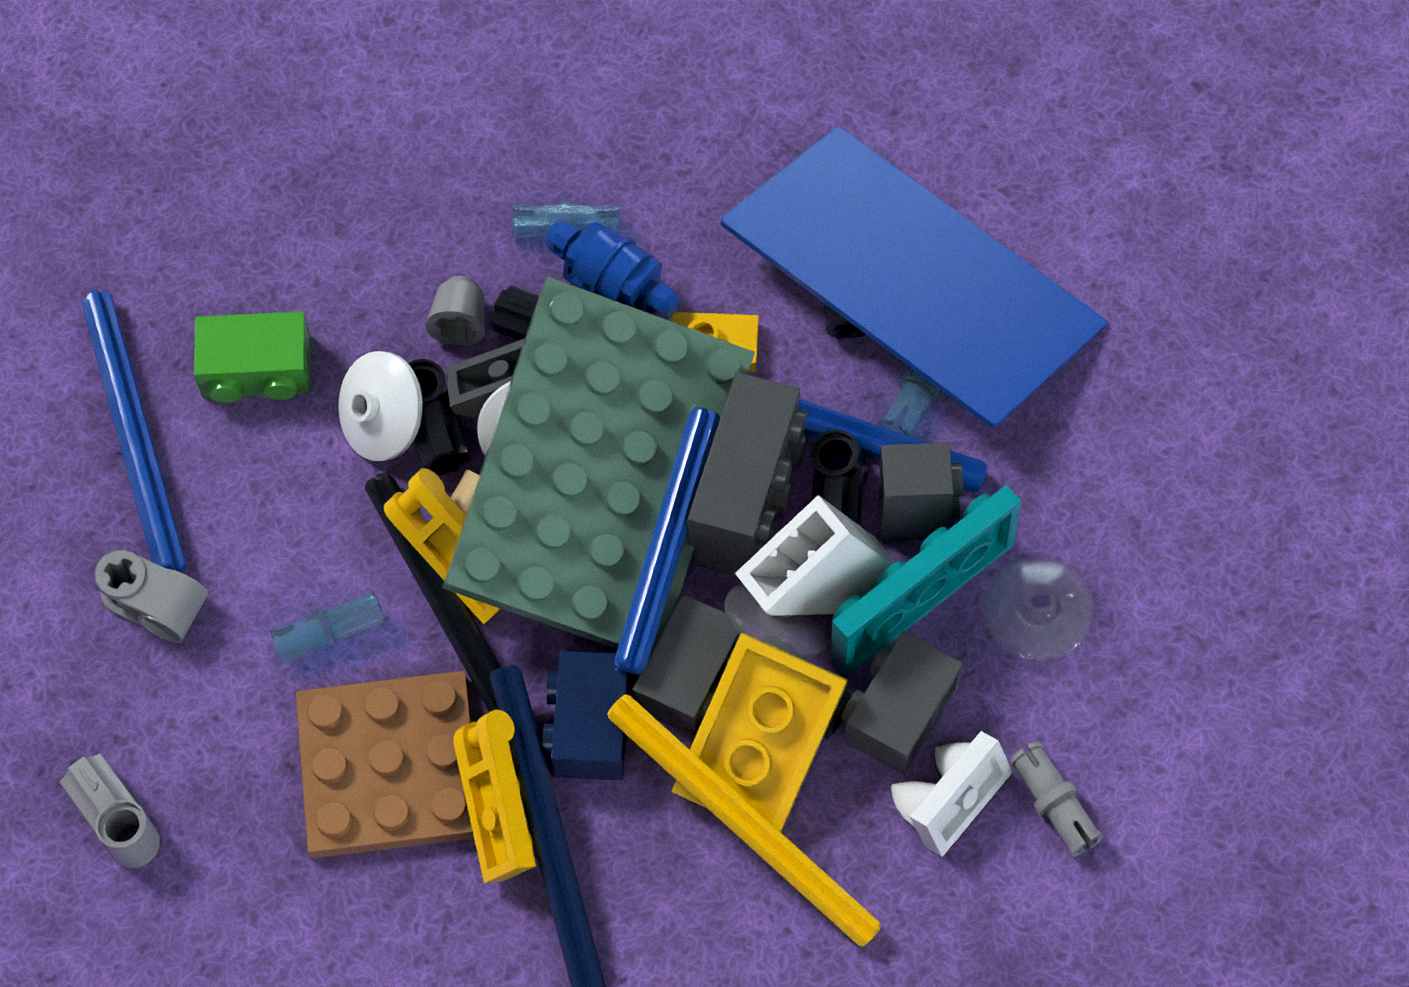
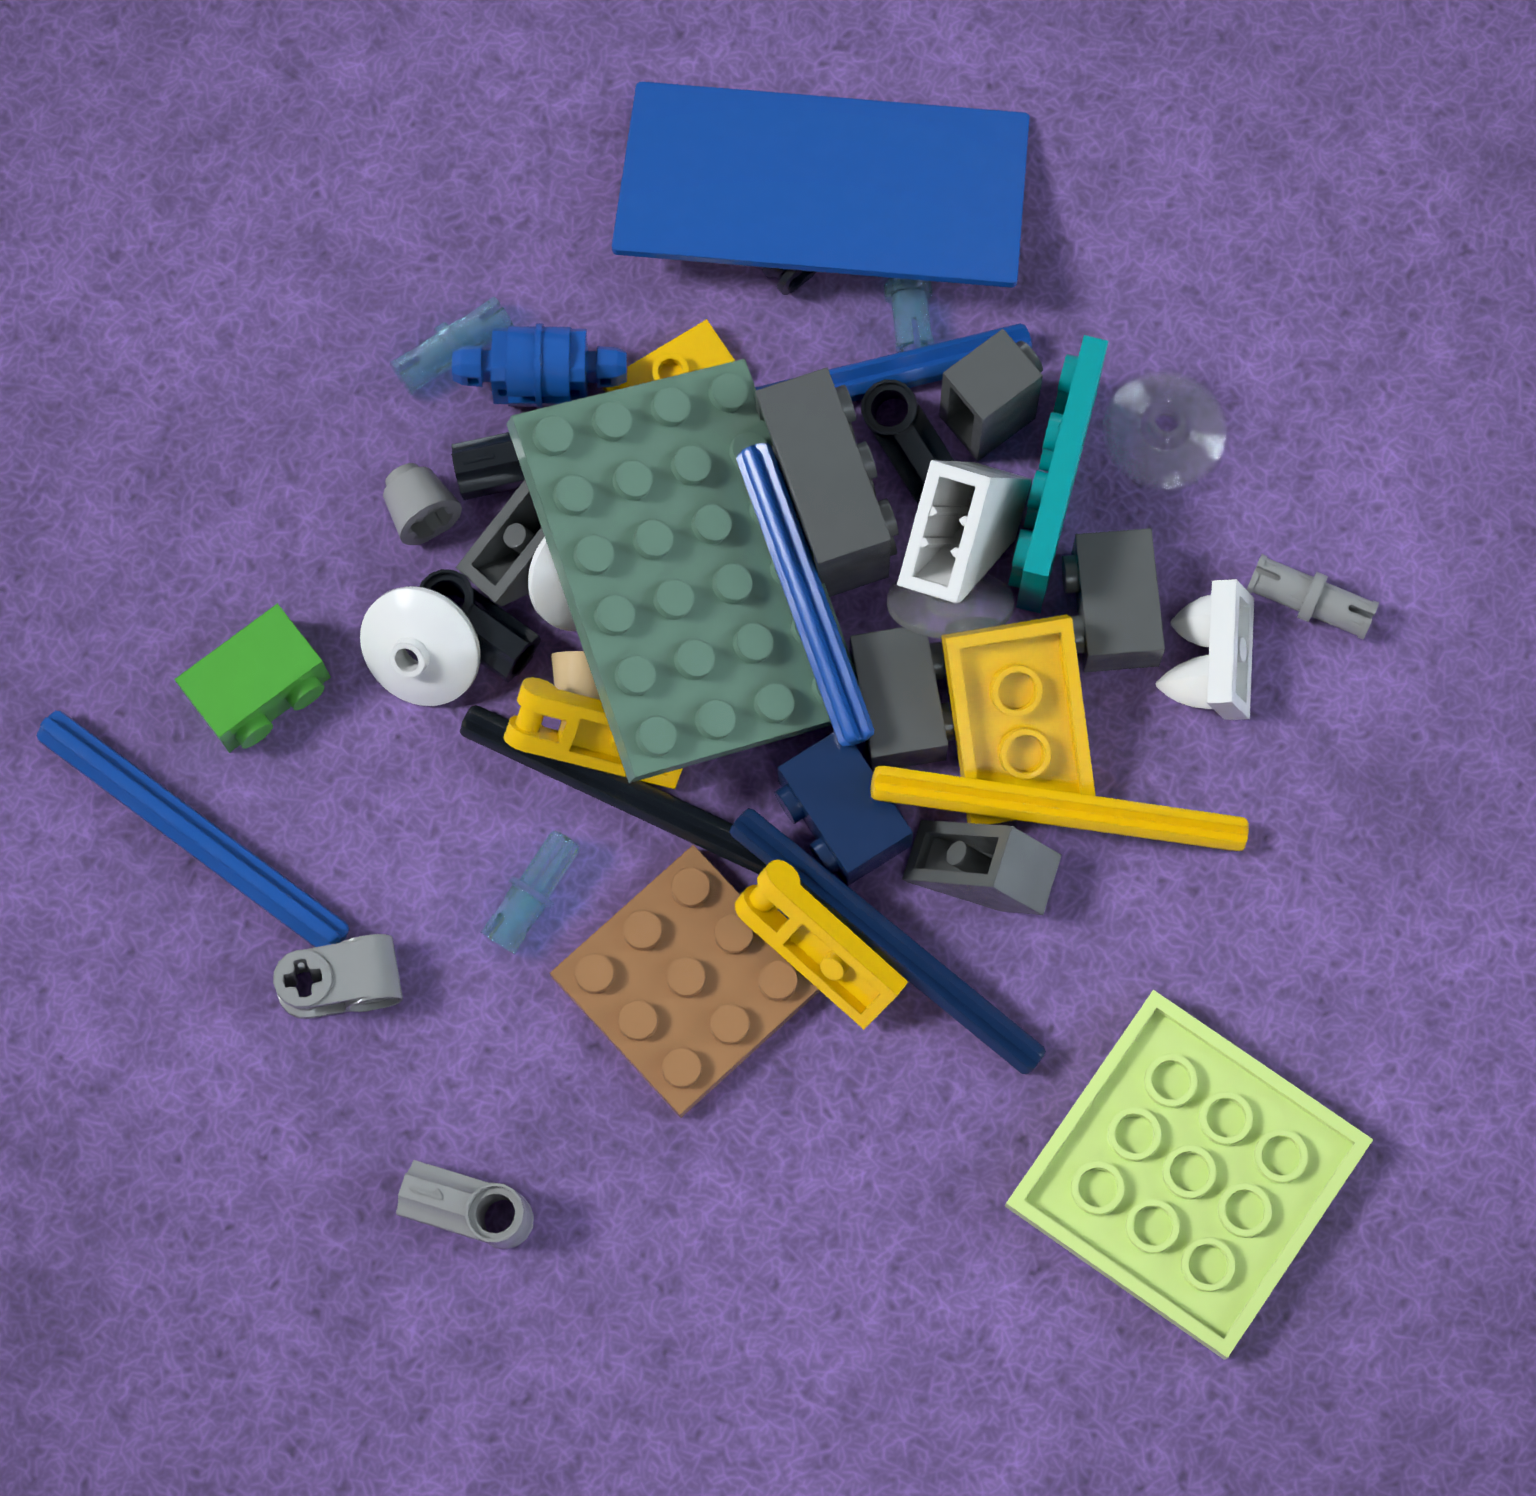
camera: 35 degrees left, 10 degrees up
(660, 826) = (983, 865): none -> dark grey slope

